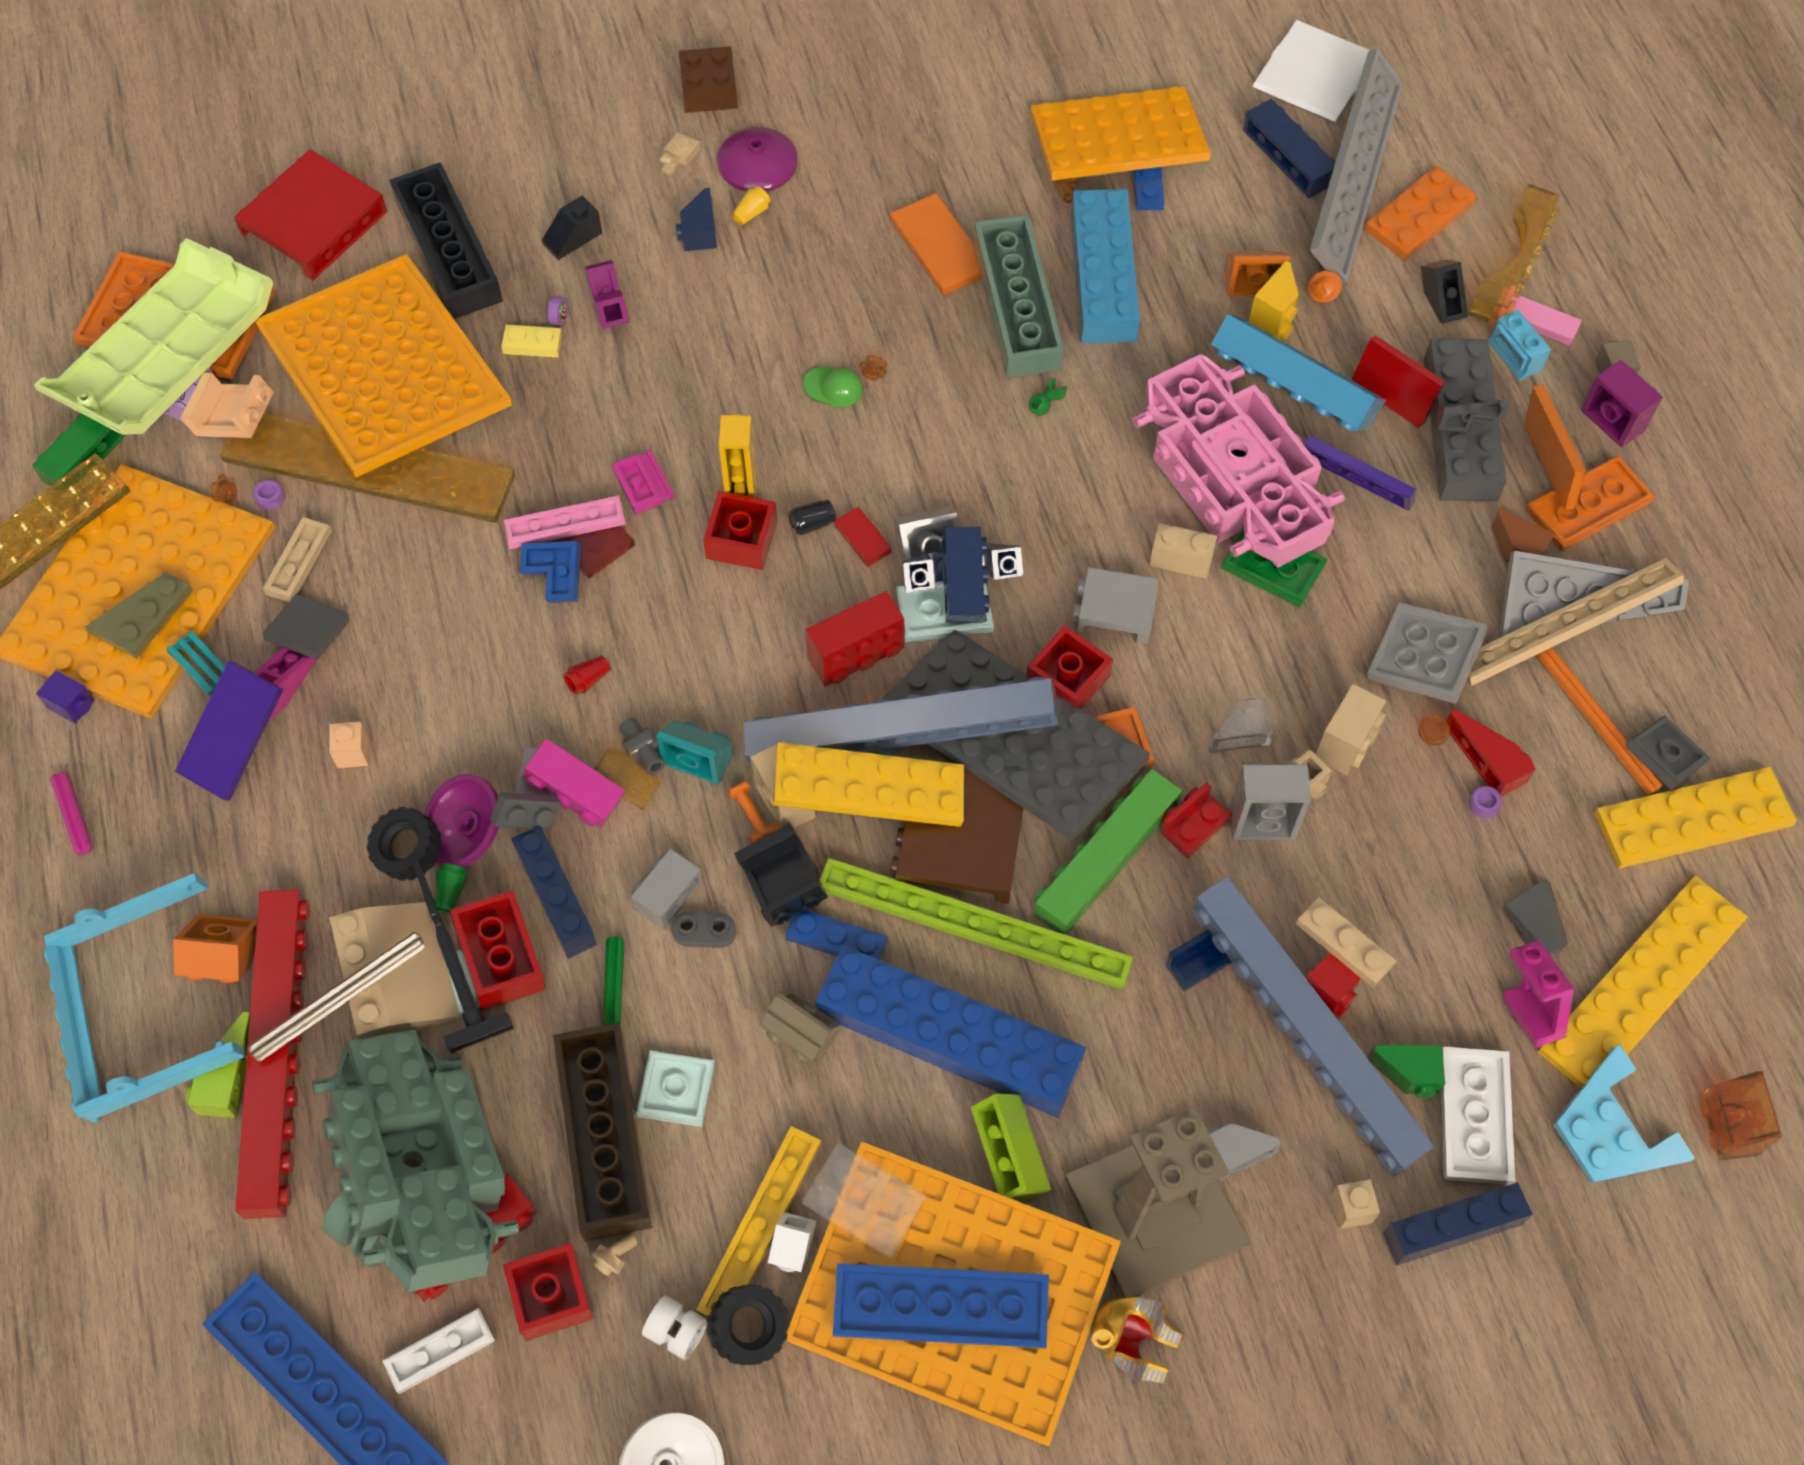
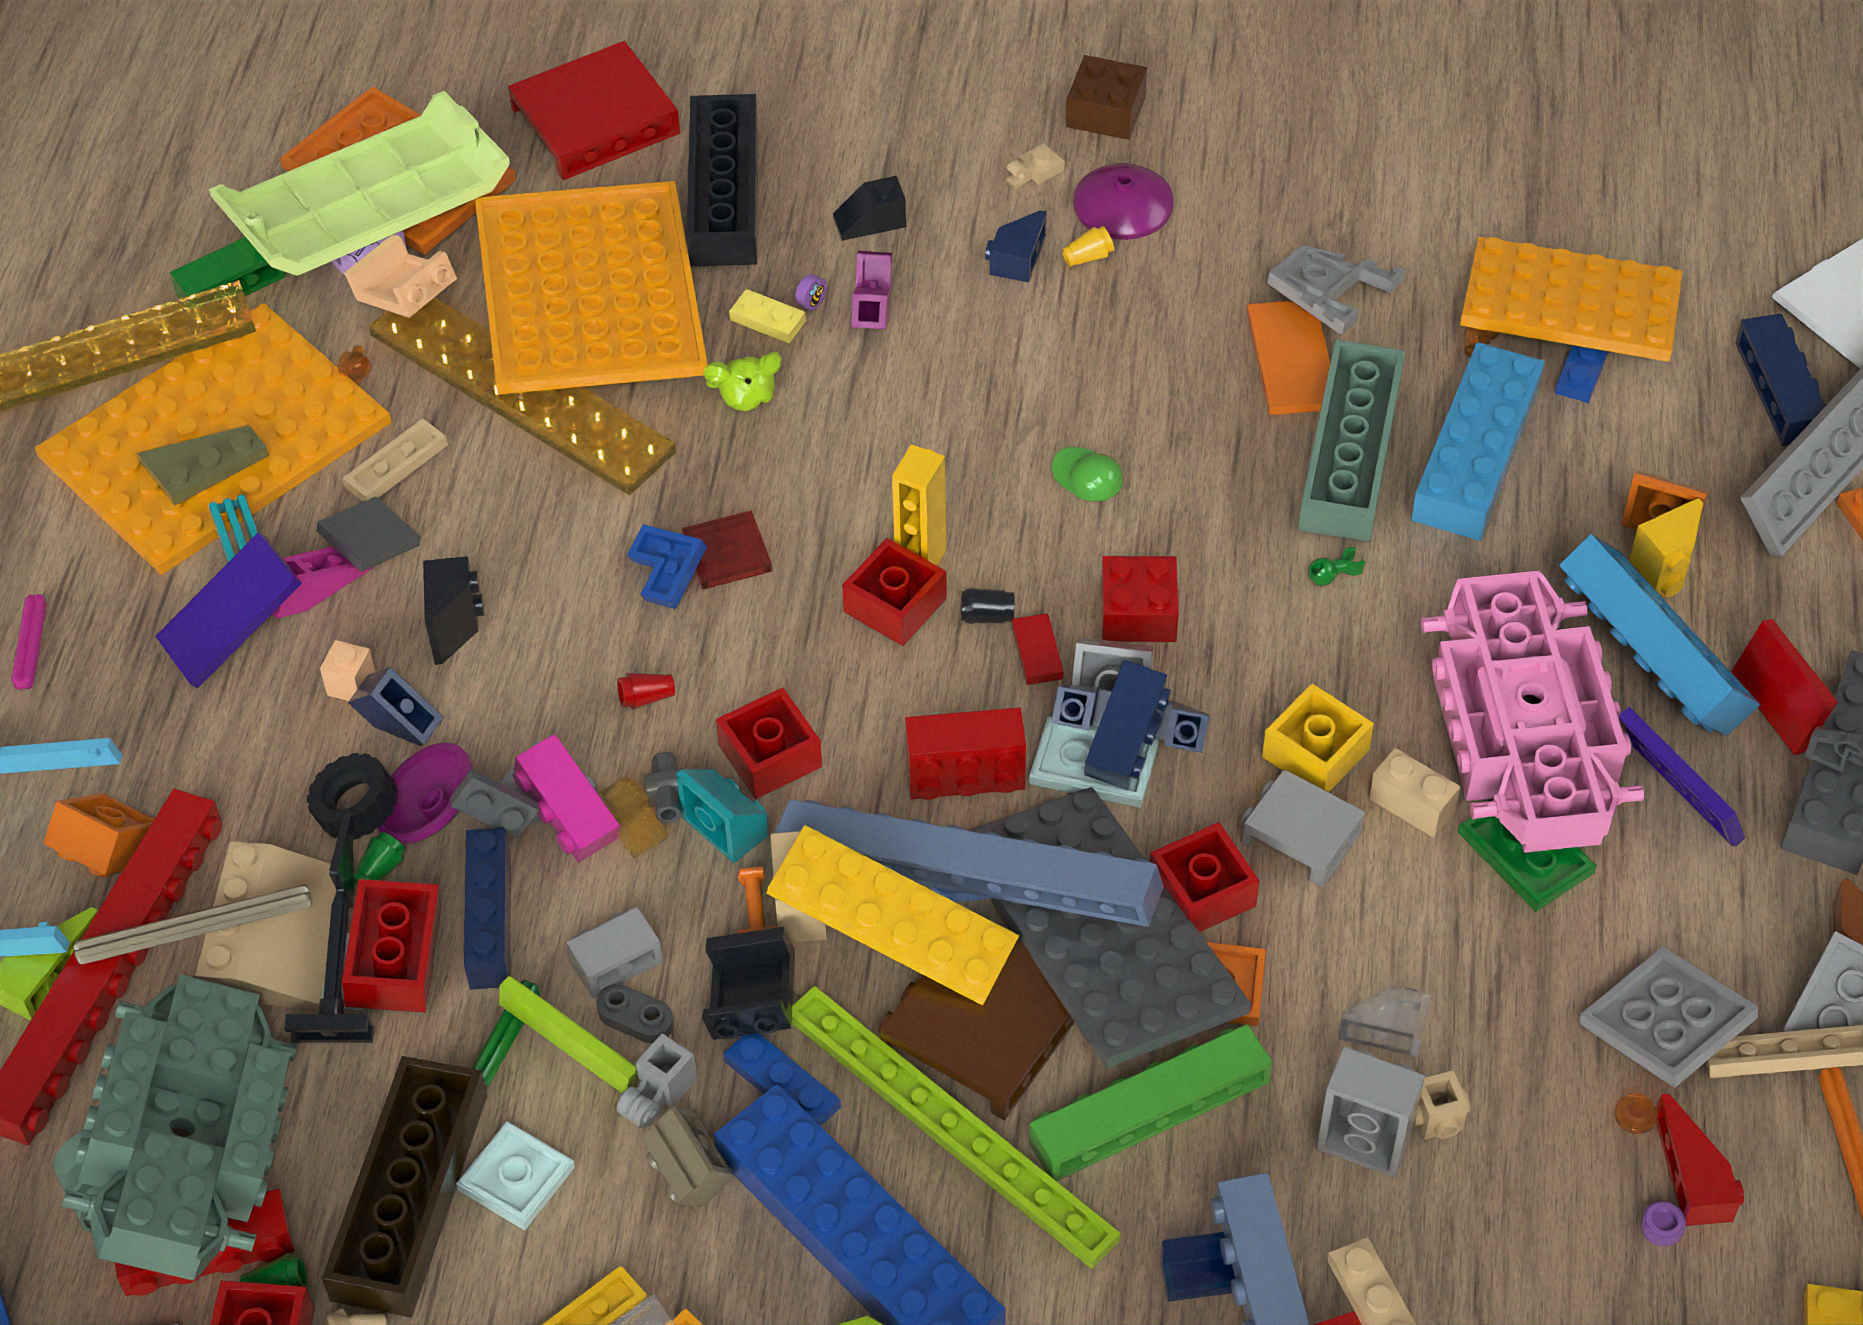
camera: 25 degrees right, 10 degrees down
(65, 697) = (83, 519): dark purple brick -> none
(268, 494) = (401, 385): medium lavender tile -> none
(400, 759) = (395, 707): none -> dark blue slope
(406, 661) = (450, 604): none -> black slope
(532, 399) = (732, 377): none -> lime hair
(537, 1239) = (281, 1271): none -> green cone
(564, 522) = (703, 517): bright pink tile -> none
(642, 481) = (812, 504): dark pink plate -> none
(666, 967) = (567, 1035): none -> lime tile
(704, 683) = (769, 743): none -> red brick
(751, 974) = (664, 1077): none -> light grey brick
(873, 367) = (1142, 467): clear orange plate -> none
(921, 472) = (1139, 598): none -> red brick
(932, 178) = (1319, 277): none -> light grey wing
(1099, 535) = (1318, 738): none -> yellow brick
(1194, 820) = (1276, 1106): red bracket -> none
(1324, 286) = (1748, 551): orange hat -> none
(1352, 730) = (1520, 1069): tan brick -> none

